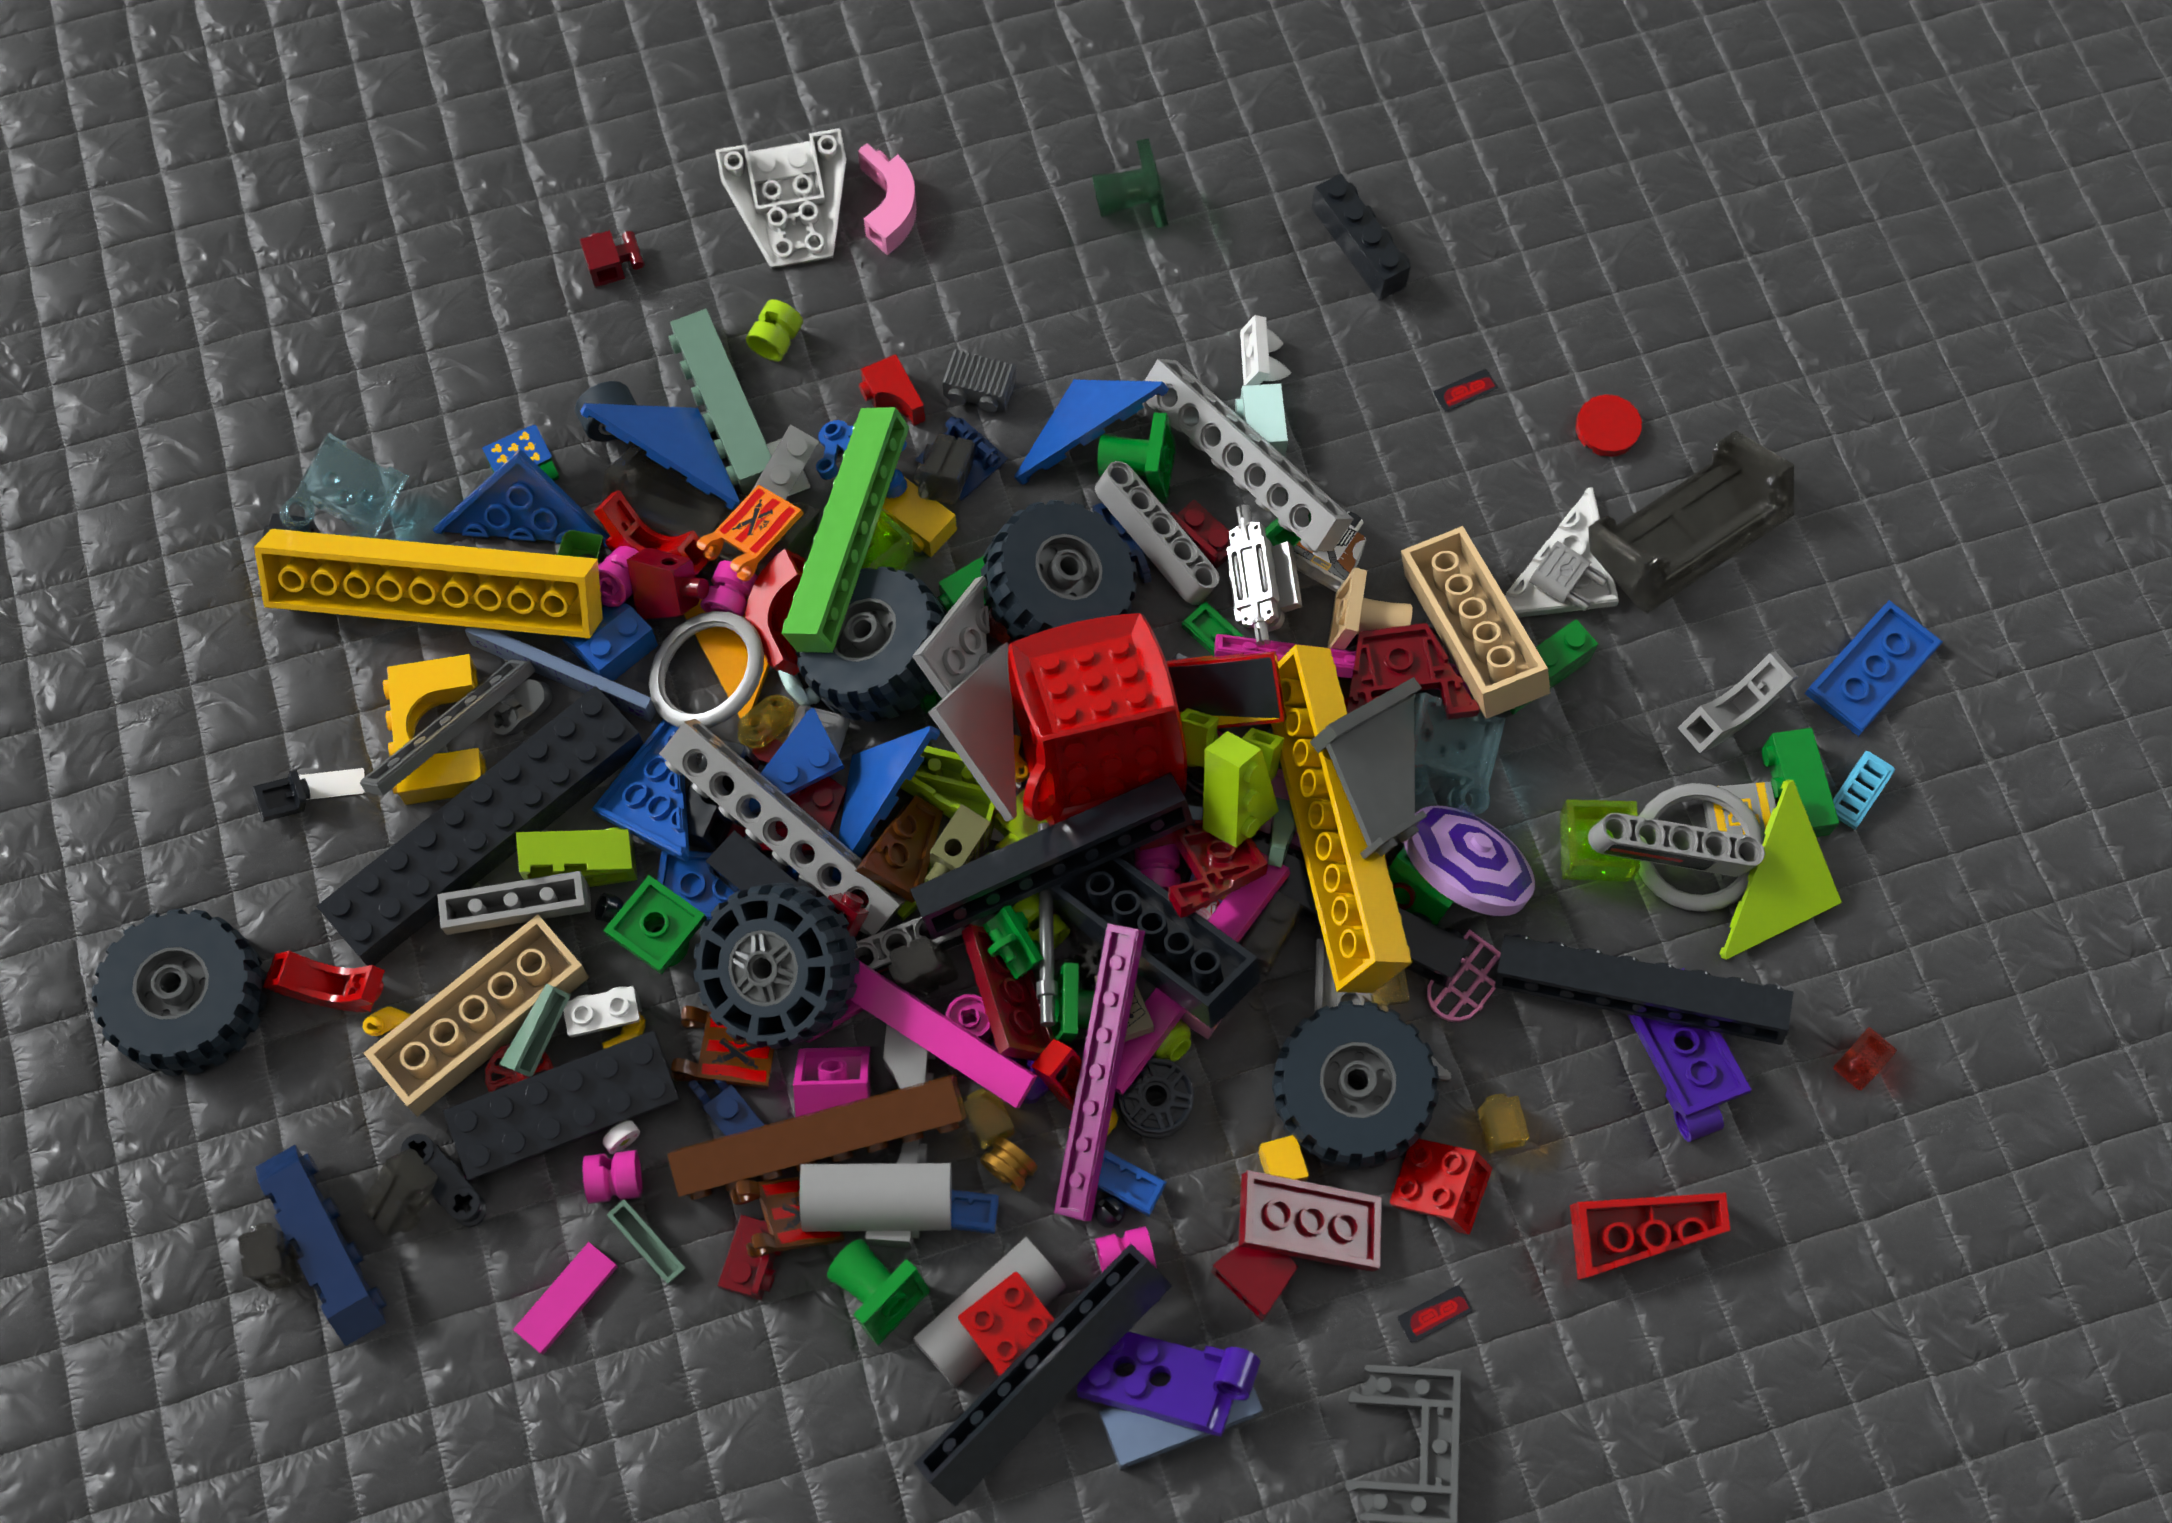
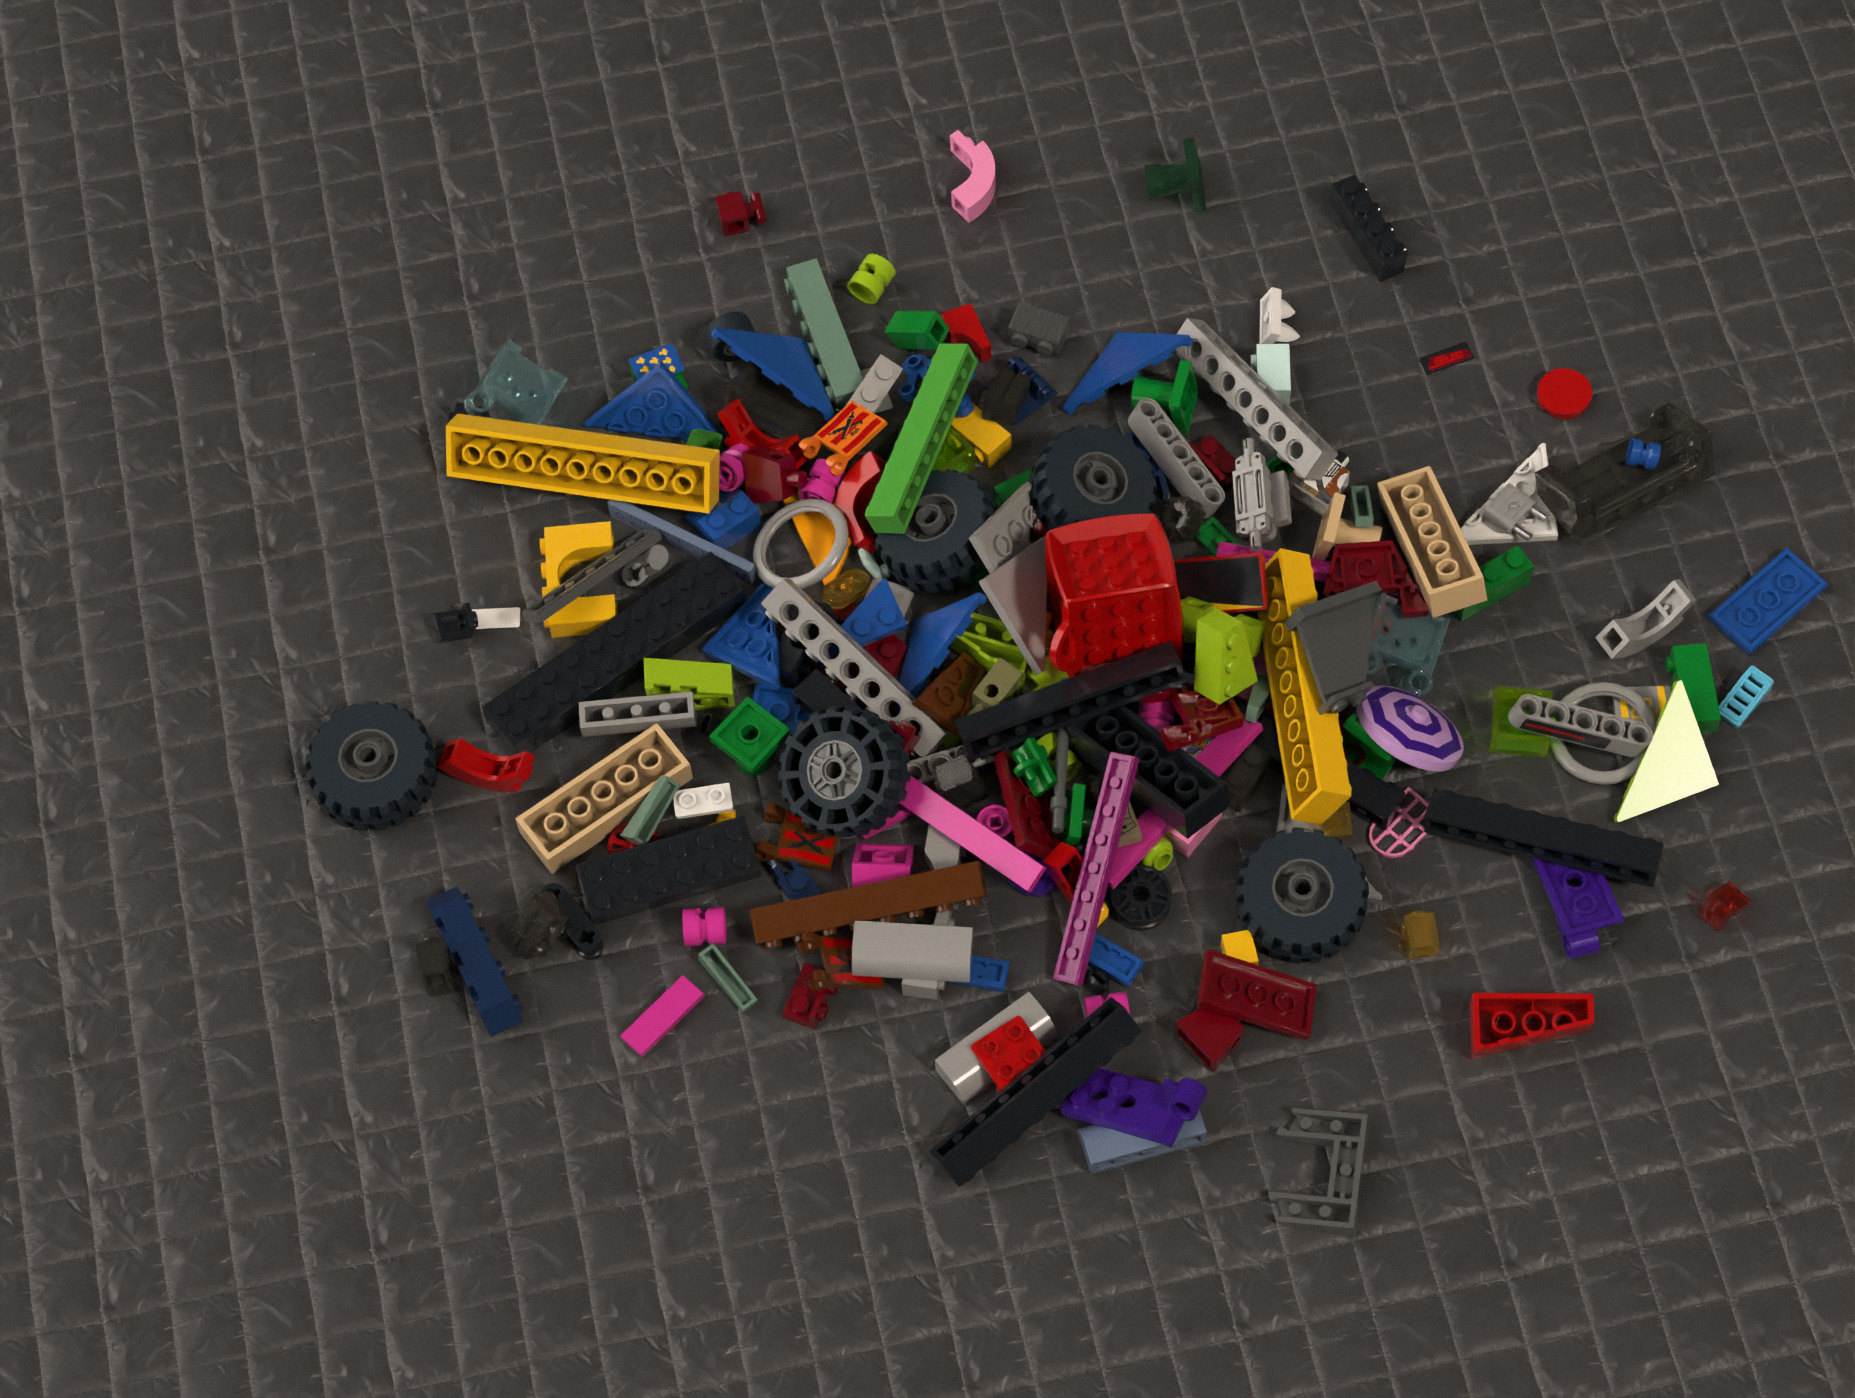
camera: 10 degrees right, 5 degrees down
(384, 1020) = (528, 799): yellow arm -> none
(621, 1136) = (712, 897): white tile -> none
(788, 195) = (890, 170): white wedge -> none
(833, 390) = (917, 330): none -> green brick
(884, 1295) = (912, 1028): green plant -> none
(987, 1117) = (1005, 903): clear yellow brick -> none
(1008, 1163) = (1019, 937): pearl gold wheel -> none
(1170, 609) = (1183, 519): none -> clear smoke gear
(1384, 581) = (1361, 506): none -> sand green piece
(1434, 1314) = (1352, 1077): sticker -> none
(1442, 1183) = (1368, 976): red bracket -> none
(1711, 495) = (1643, 454): none -> blue wheel

